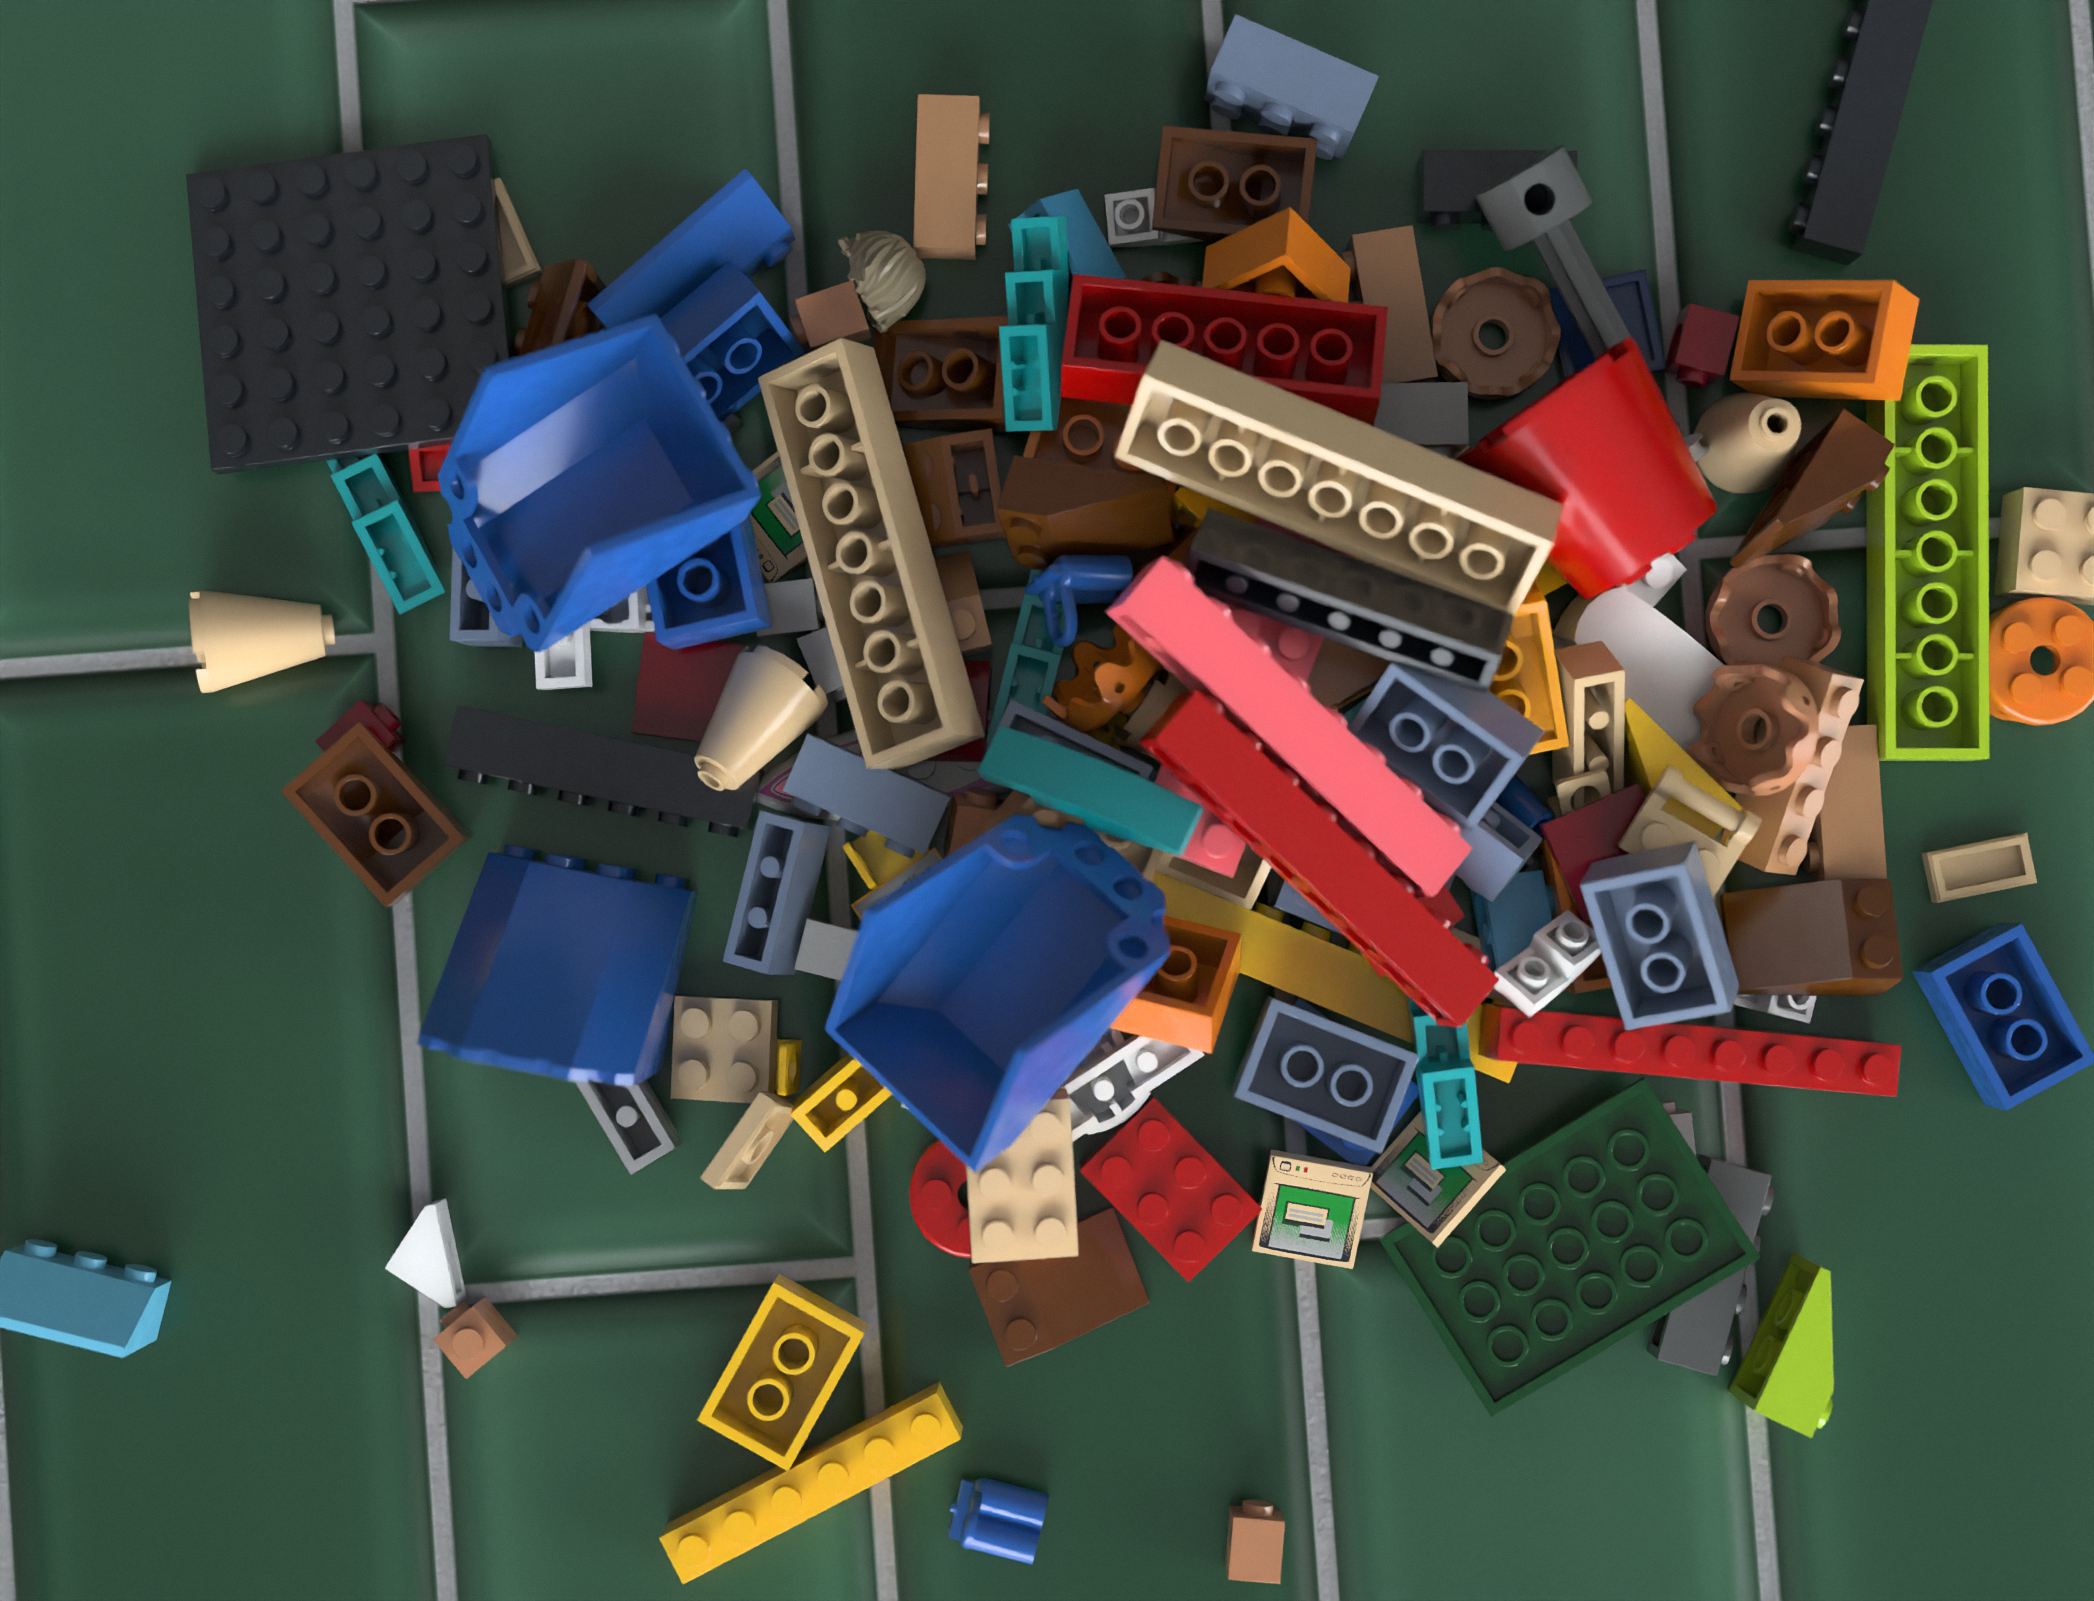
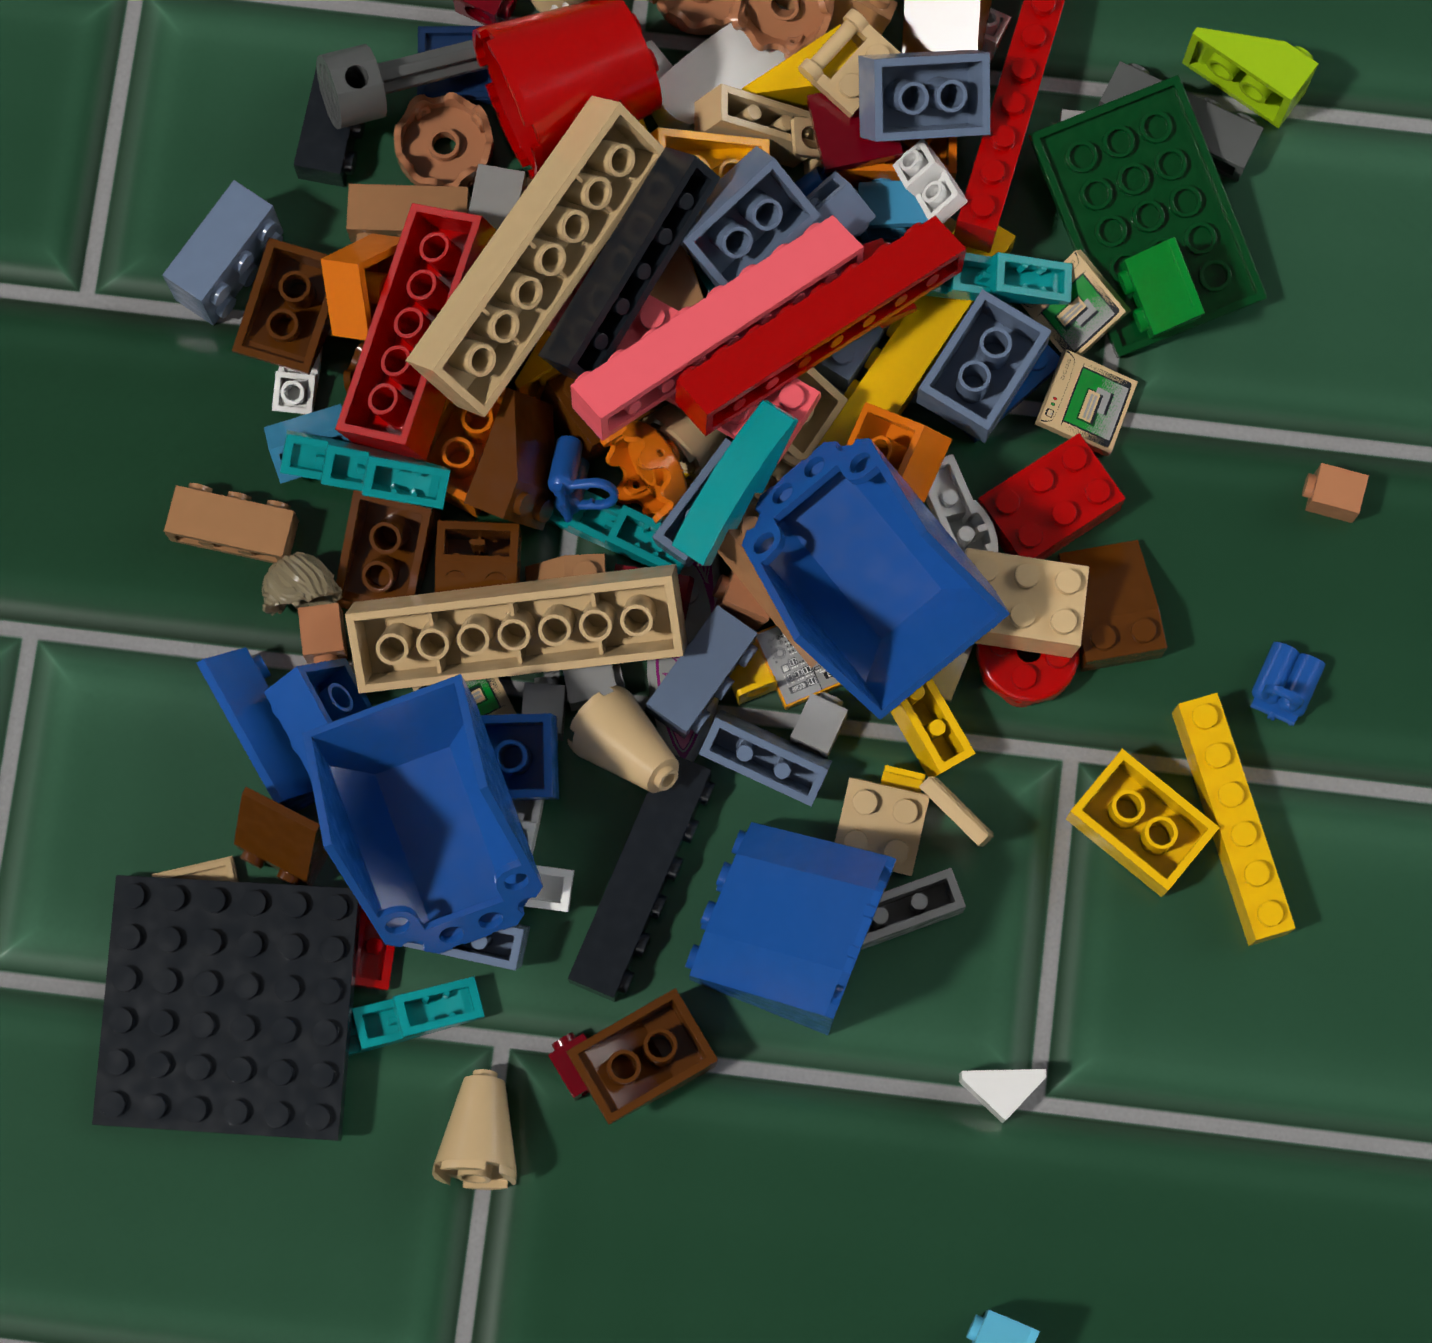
camera: 75 degrees left, 10 degrees down
(473, 1335) = (1072, 1063): nougat brick -> none
(680, 687) = (590, 804): dark red tile -> none
(1467, 1283) = (1160, 289): none -> green slope

